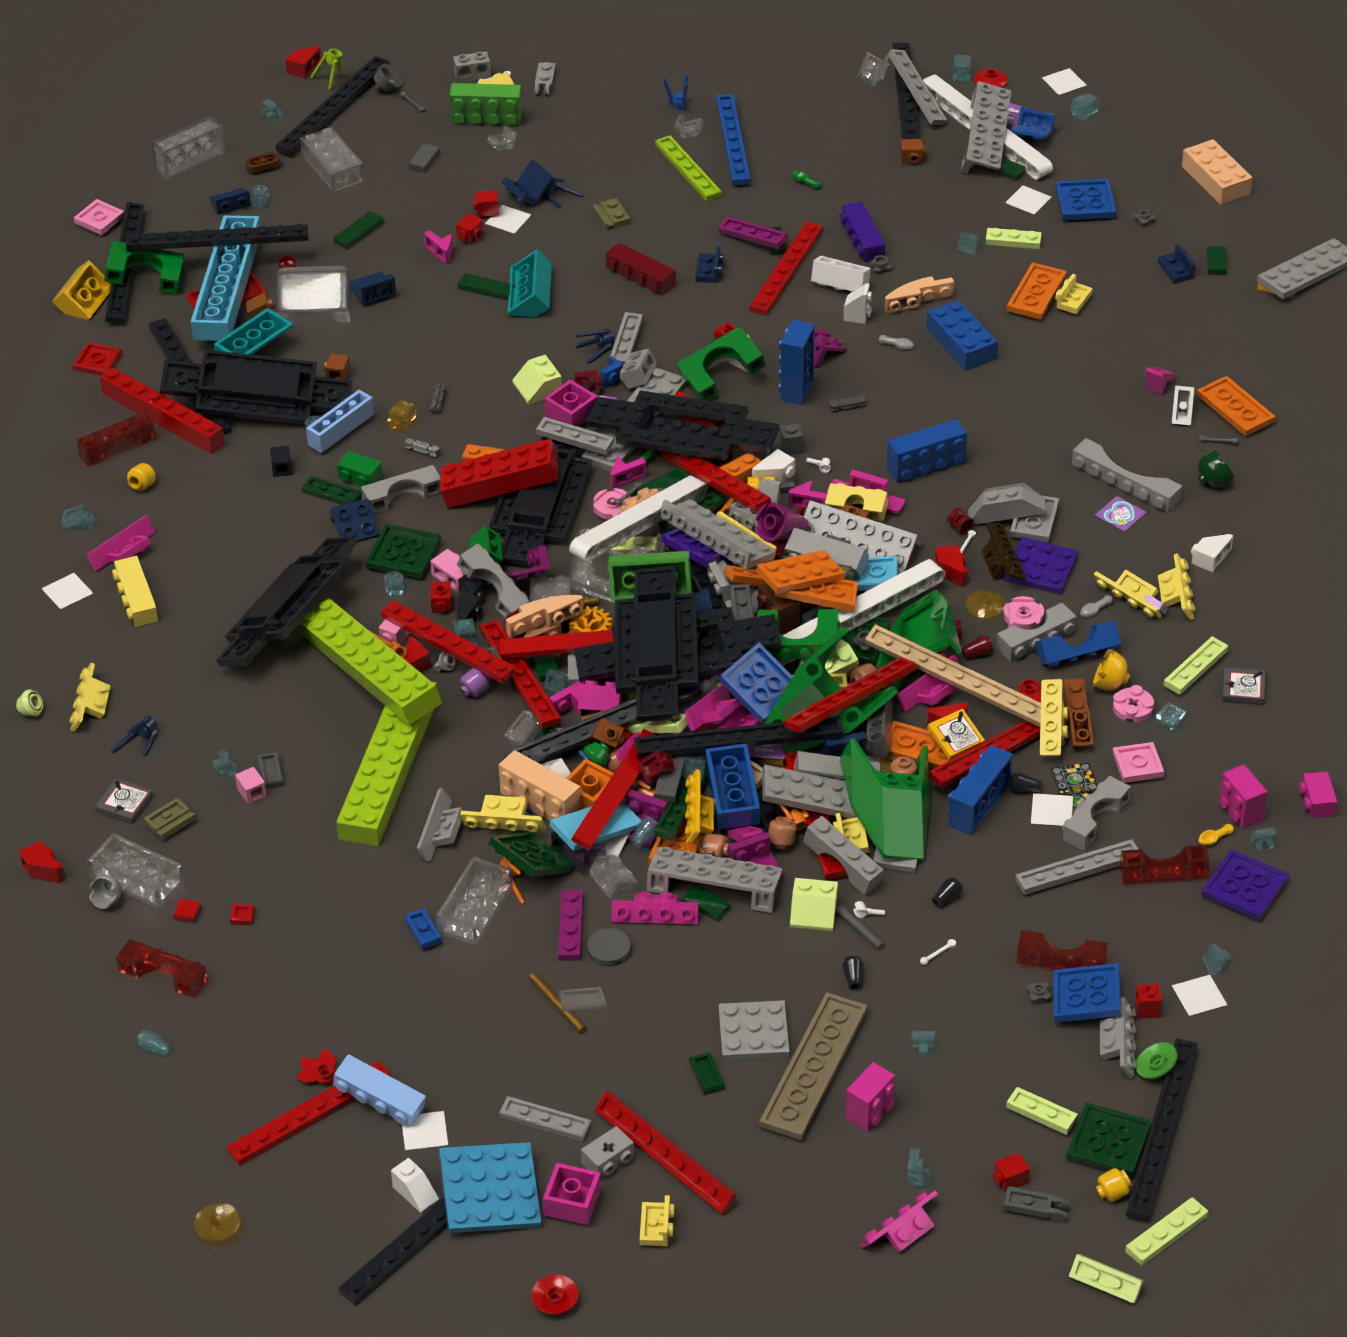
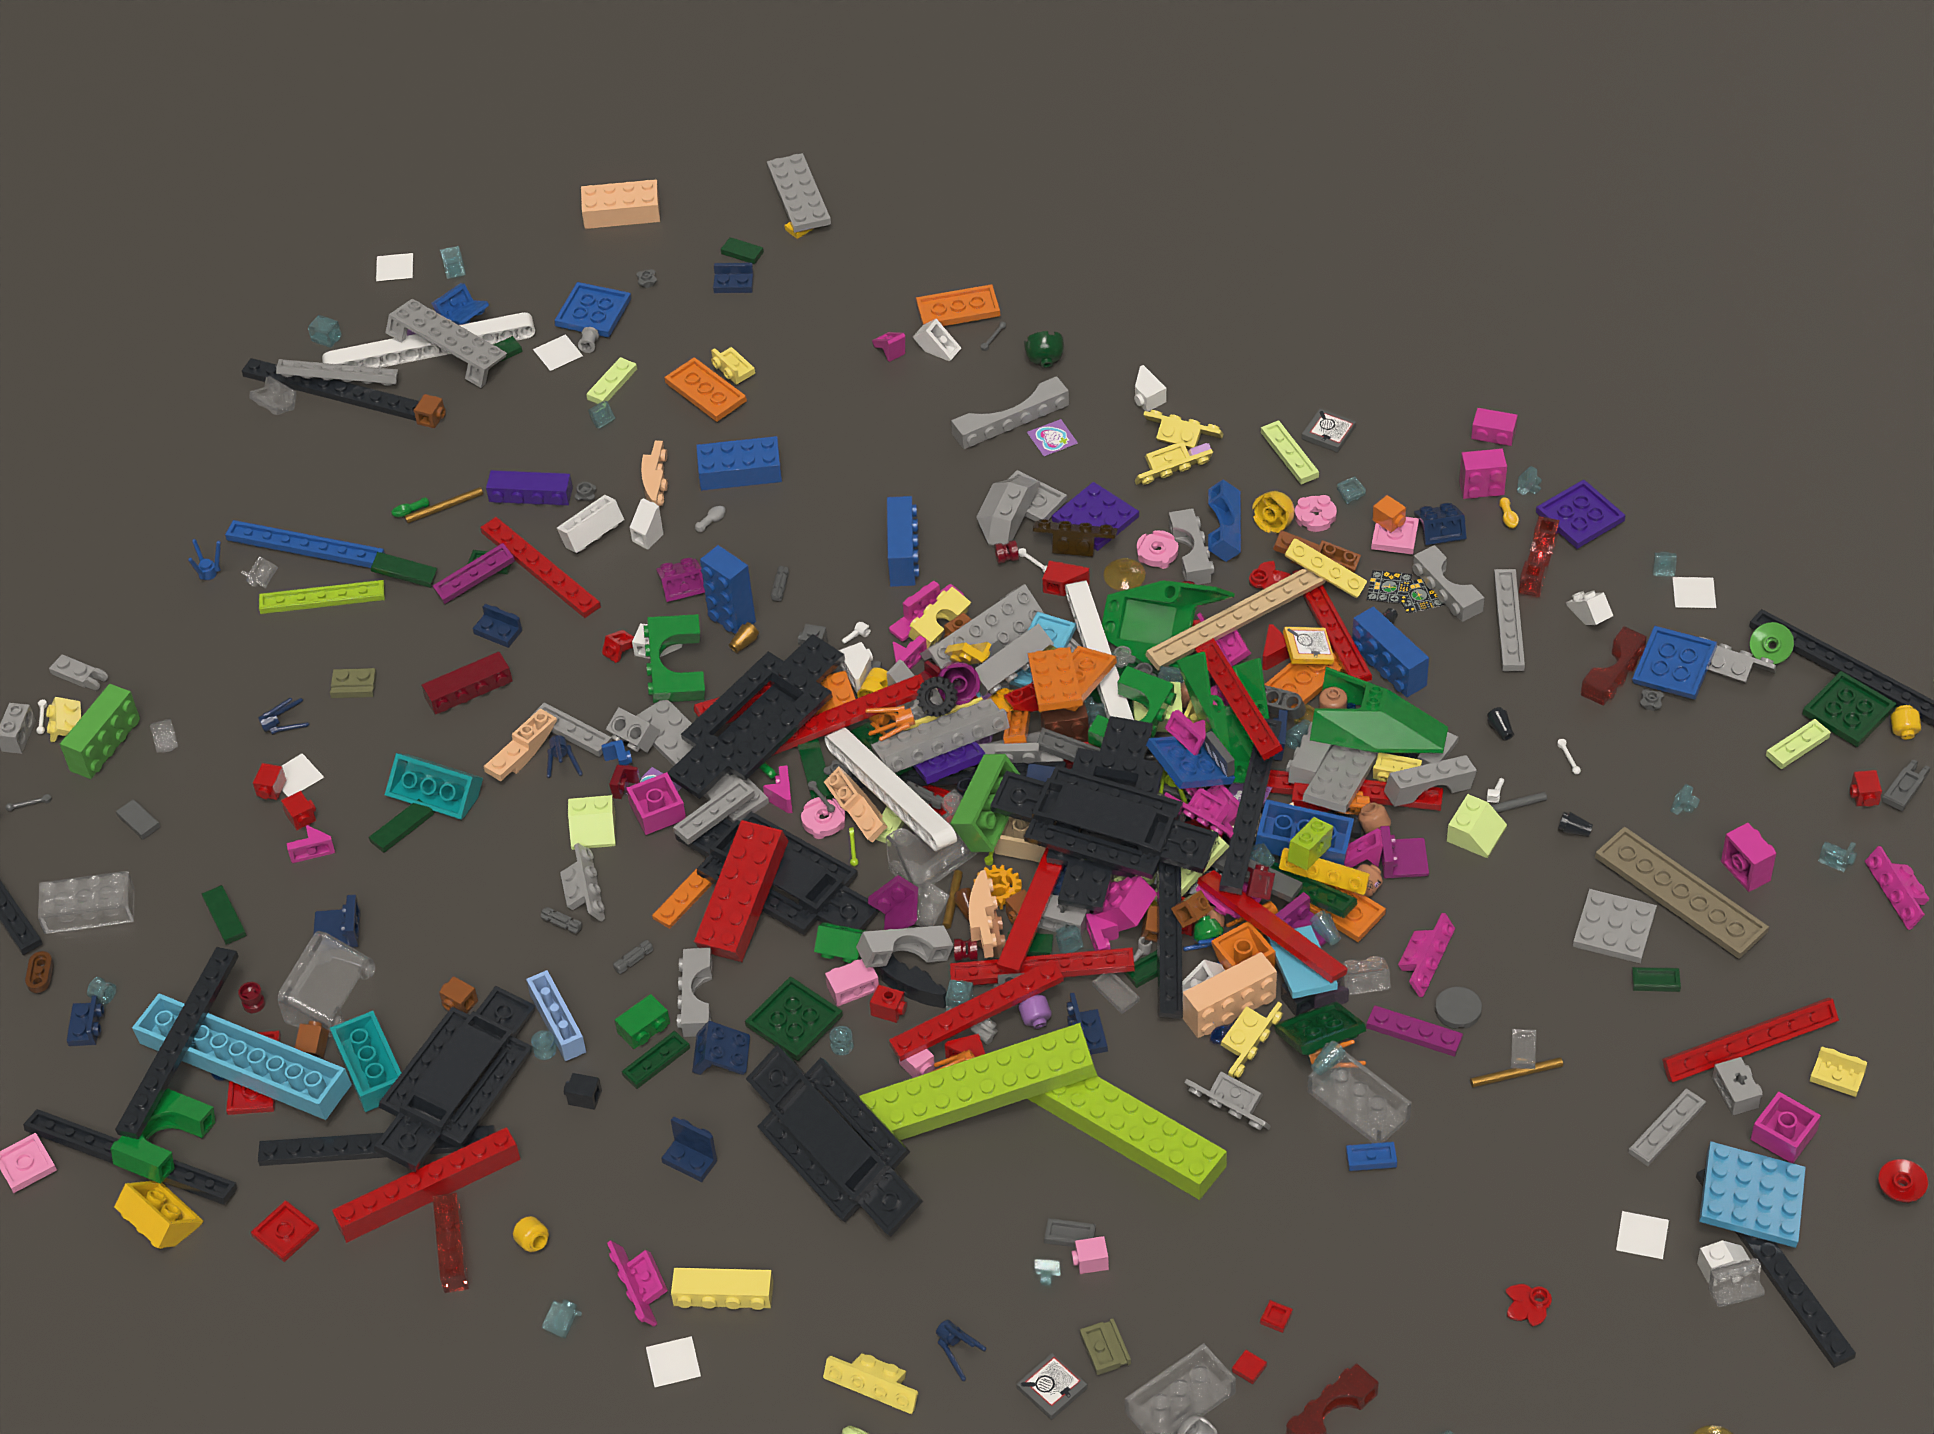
camera: 65 degrees left, 5 degrees up
(249, 534) = (691, 1151): none -> dark blue bracket
(292, 1122) = (1586, 1330): red plate -> none
(379, 1090) = (1593, 1252): light blue brick -> none
(390, 1197) = (1736, 1282): none -> clear bracket
(401, 415) = (575, 959): clear yellow brick -> none
(468, 714) = (1090, 1024): none -> dark blue bracket
(477, 397) = (581, 883): none -> light grey bracket
(491, 859) = (1330, 1055): none -> clear light blue cone
(530, 184) = (264, 732): dark blue bracket -> none
(591, 319) = (522, 748): none -> light nougat slope
(703, 778) = (1310, 843): none -> lime brick
(707, 903) = (1430, 911): dark green tile -> none
(715, 871) = (1406, 888): light grey bracket -> none
(719, 503) = (904, 720): none -> orange plant
(736, 196) = (404, 569): none -> dark green tile
(747, 512) = (950, 696): none -> black tyre
(769, 698) = (1219, 754): none -> dark grey tile
(775, 400) = (744, 636): none -> pearl gold cone
(785, 668) = (1186, 732): none -> dark pink slope
(812, 521) = (968, 653): none -> yellow bracket
(817, 194) = (444, 505): none -> pearl gold bar
(867, 654) = (1170, 674): none -> clear light blue bracket
(878, 619) = (1123, 656): none -> clear plate
(992, 77) = (352, 318): red dish -> none
(1048, 208) = (589, 336): none -> light grey bush
(1051, 809) = (1421, 616): white sticker -> none
(1092, 609) = (1173, 500): light grey piece -> none
(1124, 918) = (1590, 607): none -> white slope
(1148, 744) = (1389, 513): none -> orange brick
(1148, 1001) = (1699, 622): red brick -> none
(1168, 787) = (1441, 523): none -> dark blue bracket

